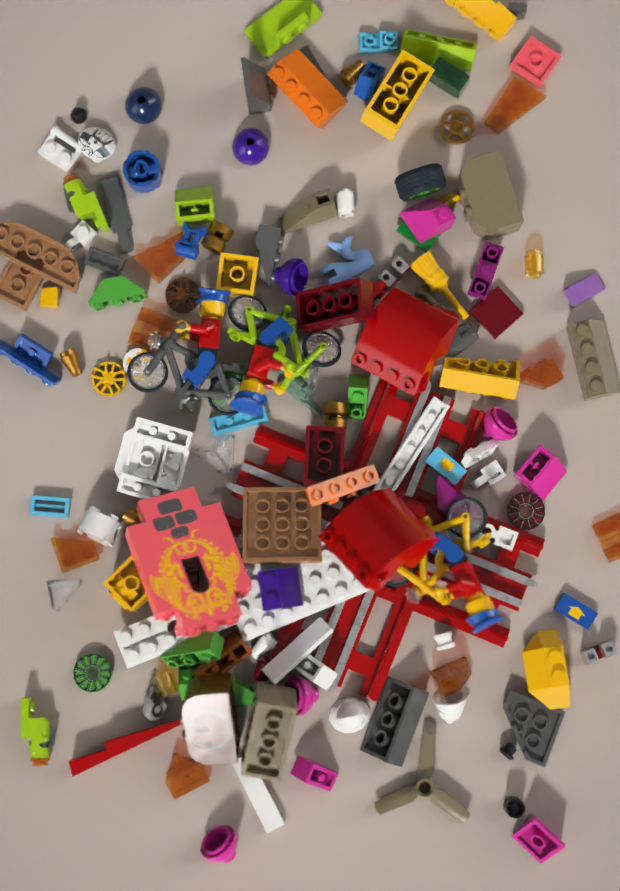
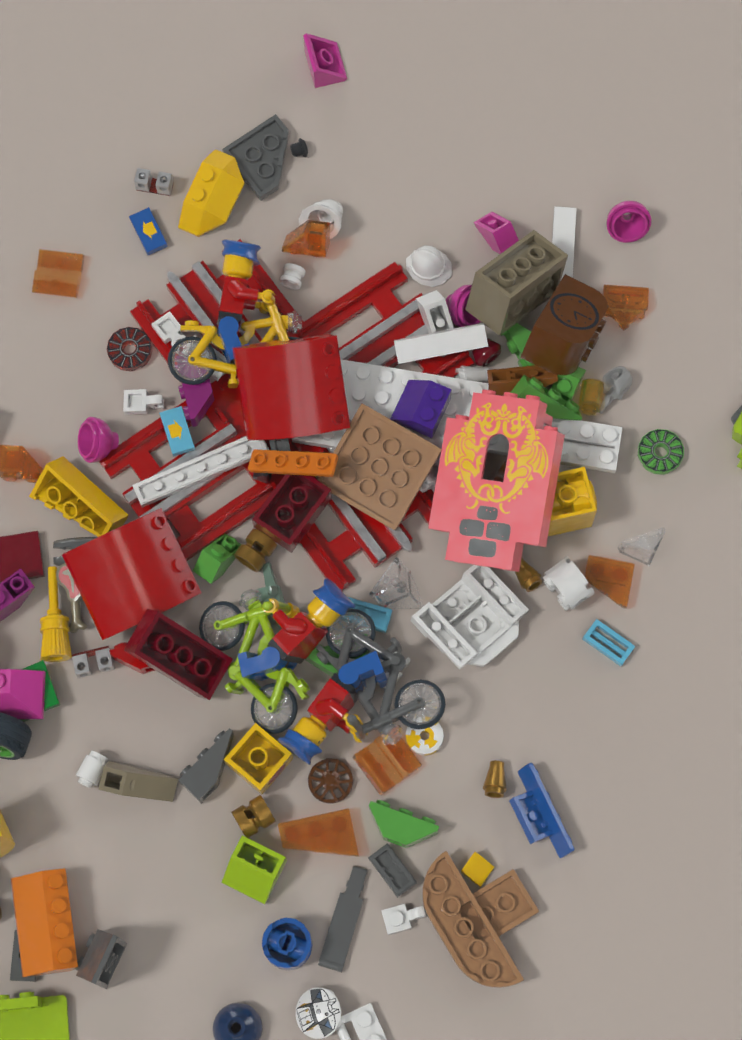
camera: 150 degrees left, 10 degrees down
(83, 203) = (377, 952): lime plate -> none
(108, 378) = (466, 739): yellow wheel -> none
(119, 745) = (670, 365): red slope -> none
(189, 249) = (293, 819): blue piece -> none
(253, 153) = (159, 909): dark purple piece -> none
(292, 276) = (202, 722): dark purple piece -> none
(360, 263) = (141, 694): light blue piece -> none
(394, 721) = (389, 233): dark grey slope -> none
(410, 792) = (417, 164): dark tan piece -> none
(479, 453) = (144, 424): white plate -> none
(517, 808) = (328, 93): black wheel -> none
(540, 472) = (89, 374): dark pink slope -> none

